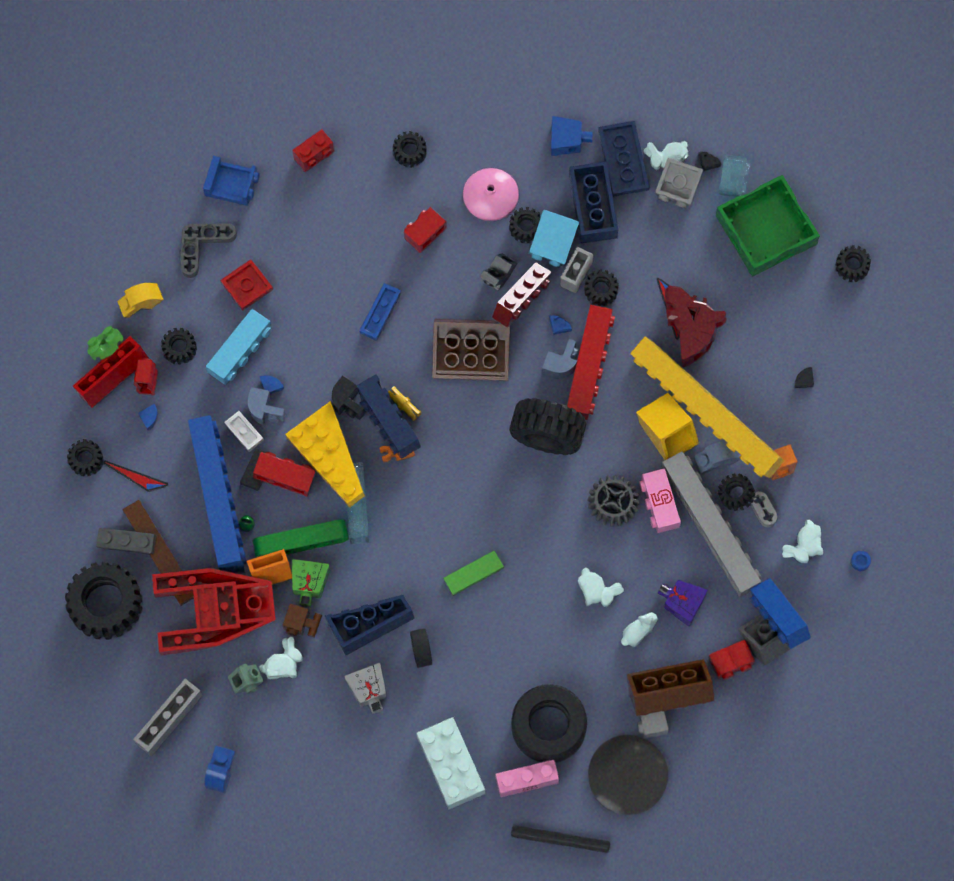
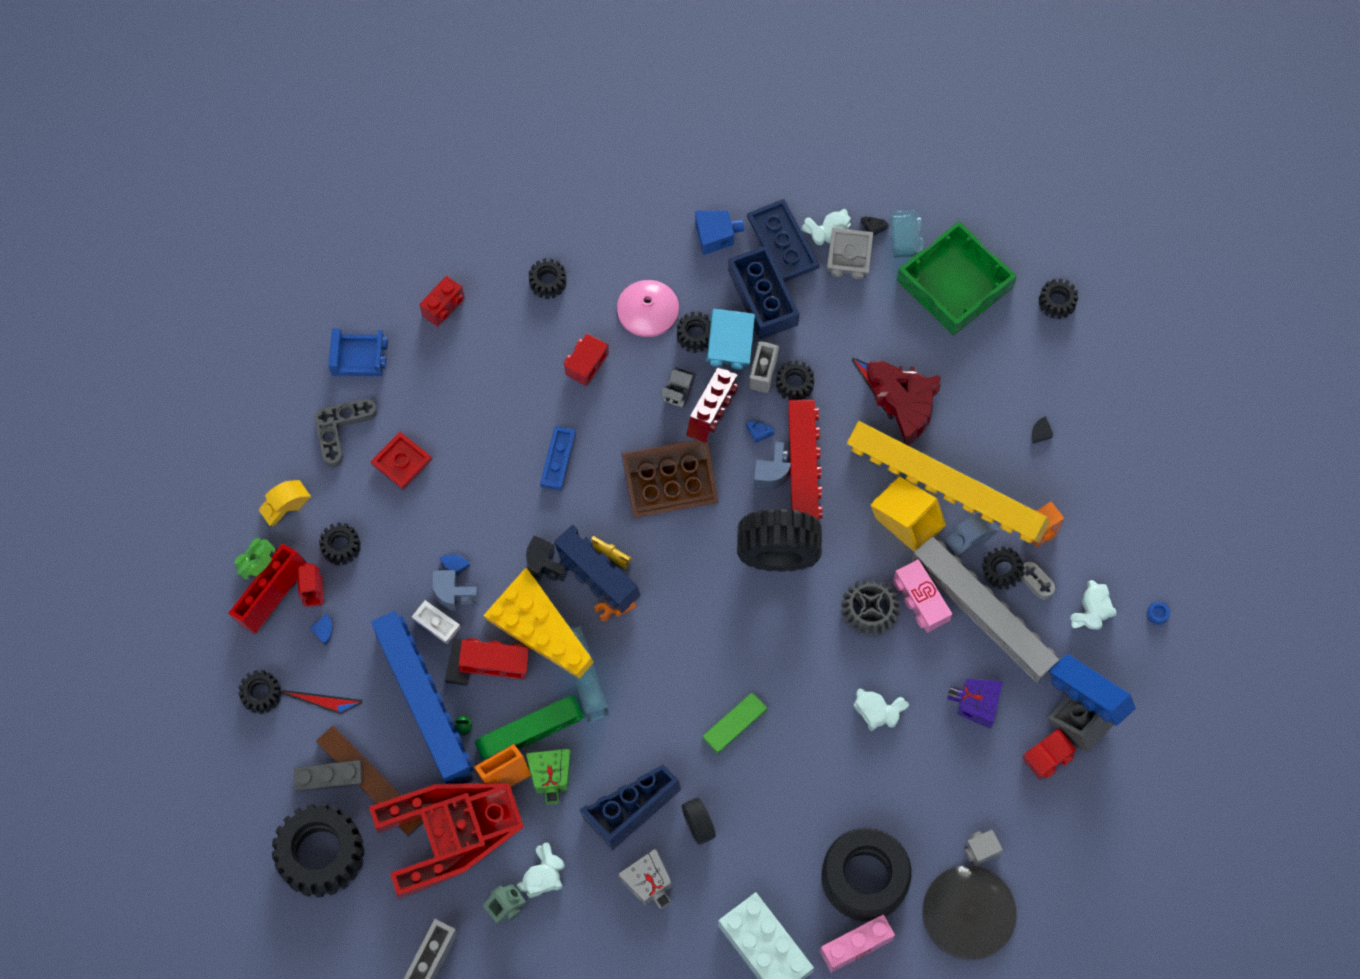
camera: 15 degrees left, 5 degrees down
(238, 347) = (408, 530): medium azure brick -> none
(298, 618) = (548, 821): reddish brown brick -> none
(636, 631) = (937, 744): light aqua animal -> none
(670, 687) = (992, 801): reddish brown brick -> none

